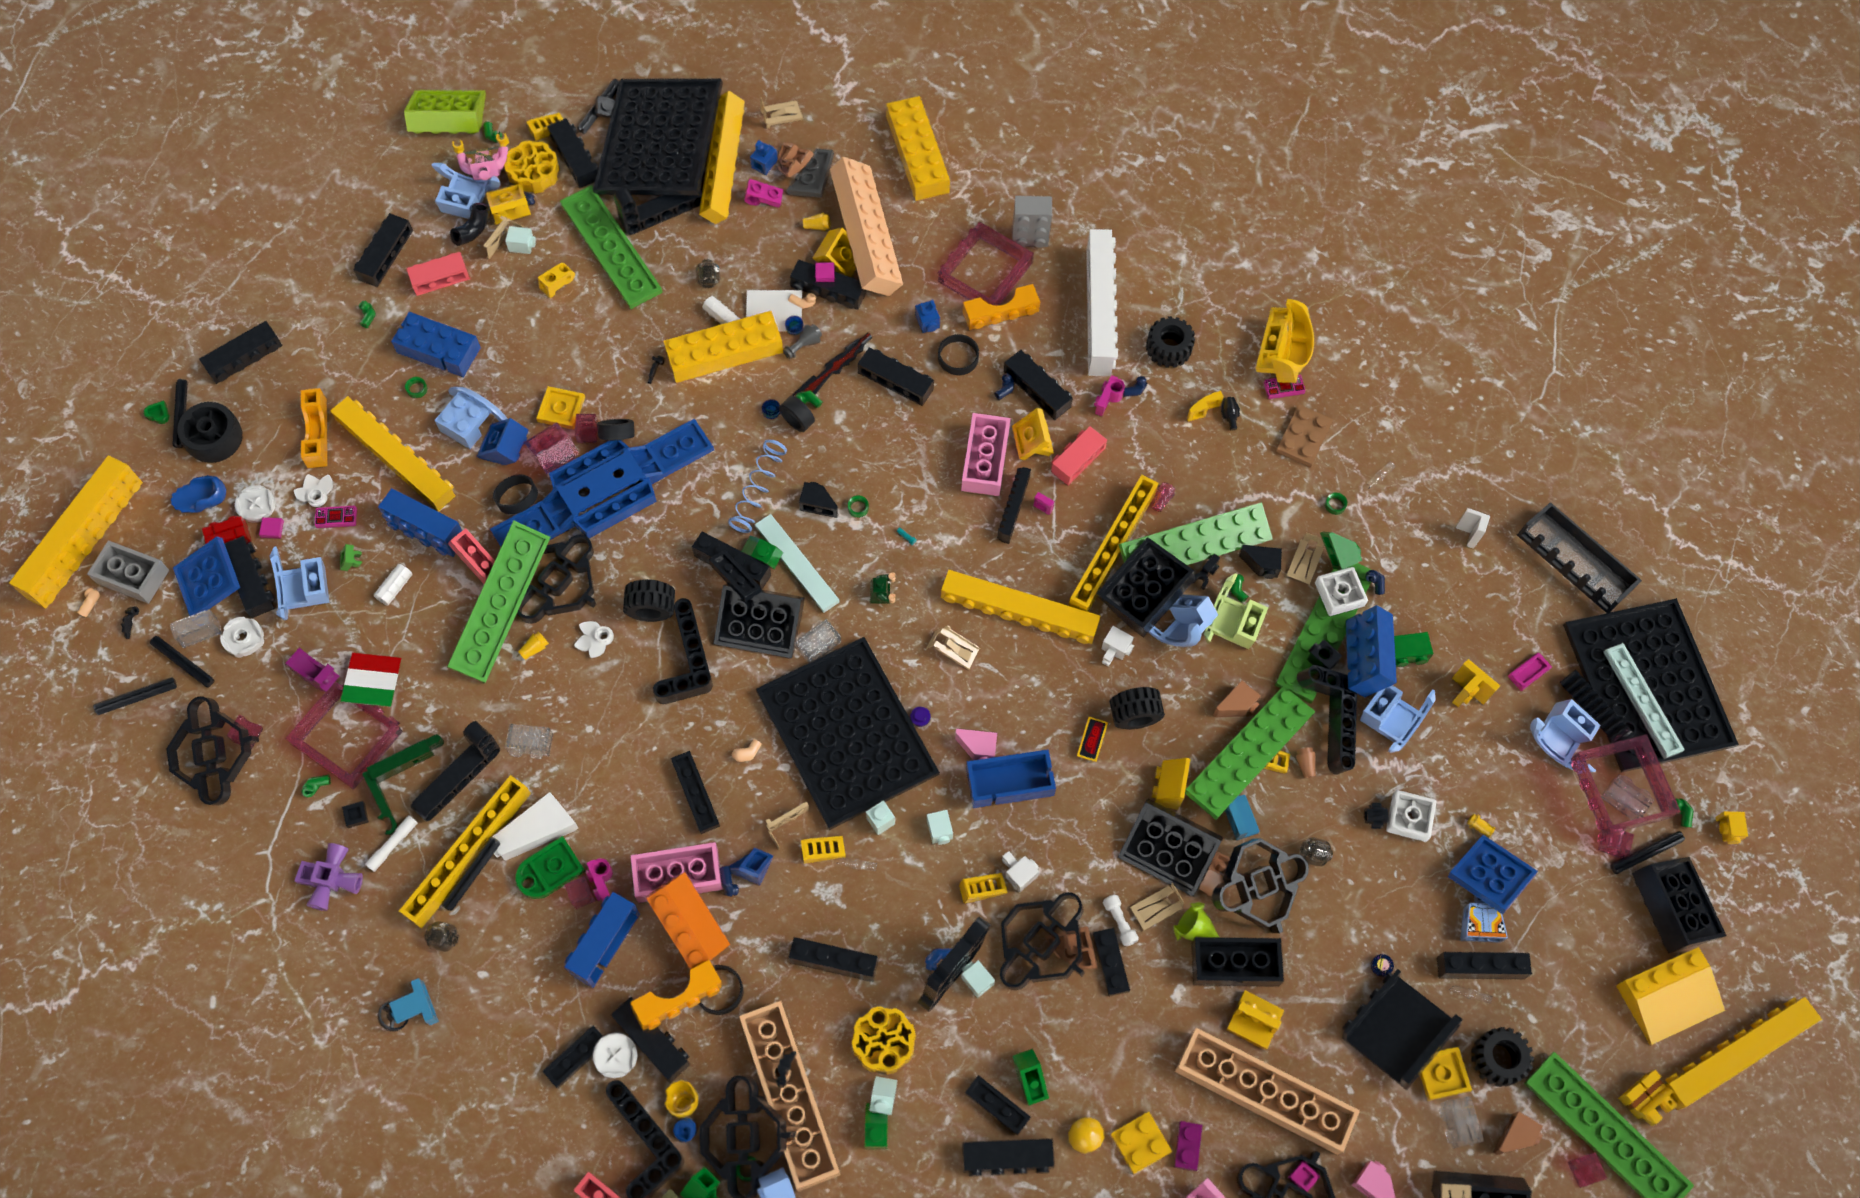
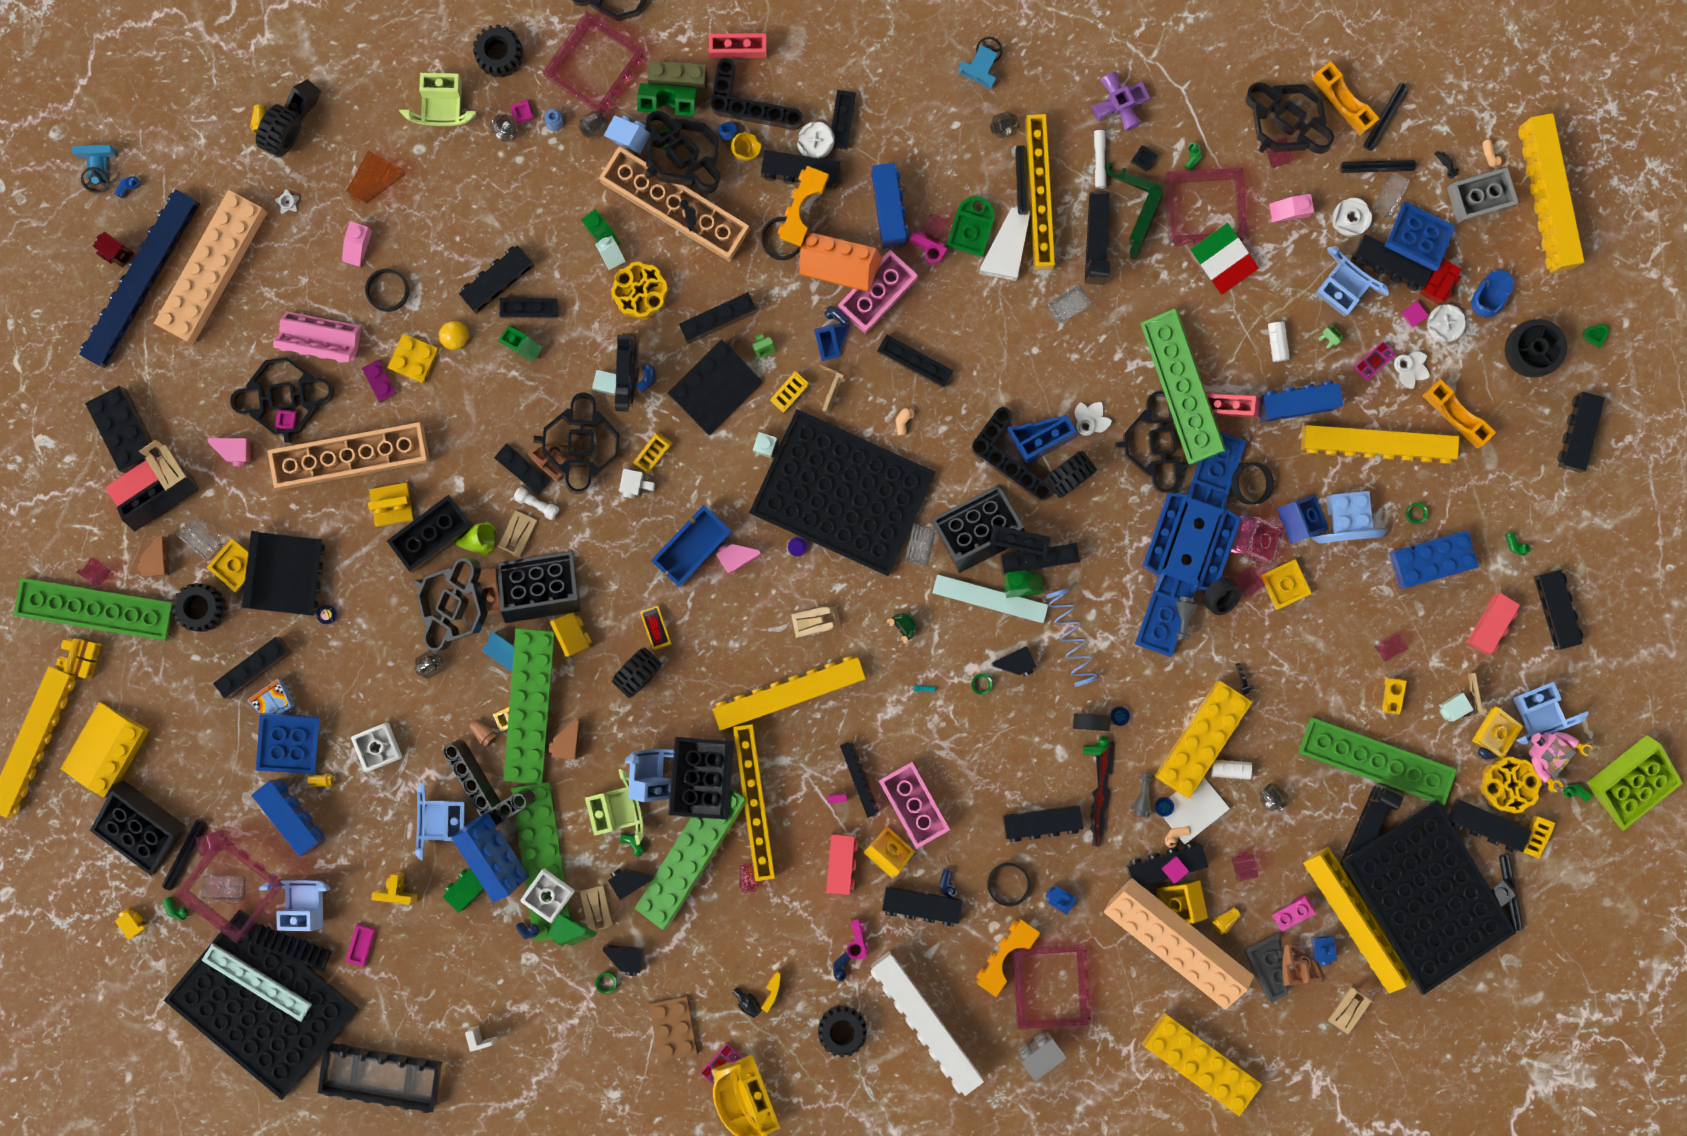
camera: 140 degrees right, 20 degrees up
(154, 712) = (1332, 84): none -> light orange arch
(180, 408) = (1581, 350): black axle -> none
(280, 678) = (1291, 208): none -> bright pink slope
(311, 670) = (1272, 231): magenta arch -> none
(474, 225) = (1504, 687): black cylinder -> none
(524, 313) = (1391, 646): none -> clear pink panel
(533, 645) = (1130, 378): yellow cone -> none
(646, 649) = (1041, 438): none -> blue wedge
(650, 439) = (1186, 608): none -> dark grey piece
(771, 245) = (1244, 866): none -> clear pink brick
(813, 903) = (763, 346): none -> bright green tile
(884, 902) = (715, 387): none -> black slope
(940, 827) = (716, 471): light aqua brick -> none
(1116, 645) = (692, 719): white brick -> none
(1210, 567) = (665, 843): black plate -> none
(1307, 508) = (625, 958): none -> black slope
(1325, 648) = (516, 827): black brick -> none
(1376, 815) = (402, 727): black gear -> none
(1531, 811) = (289, 817): none -> blue piece

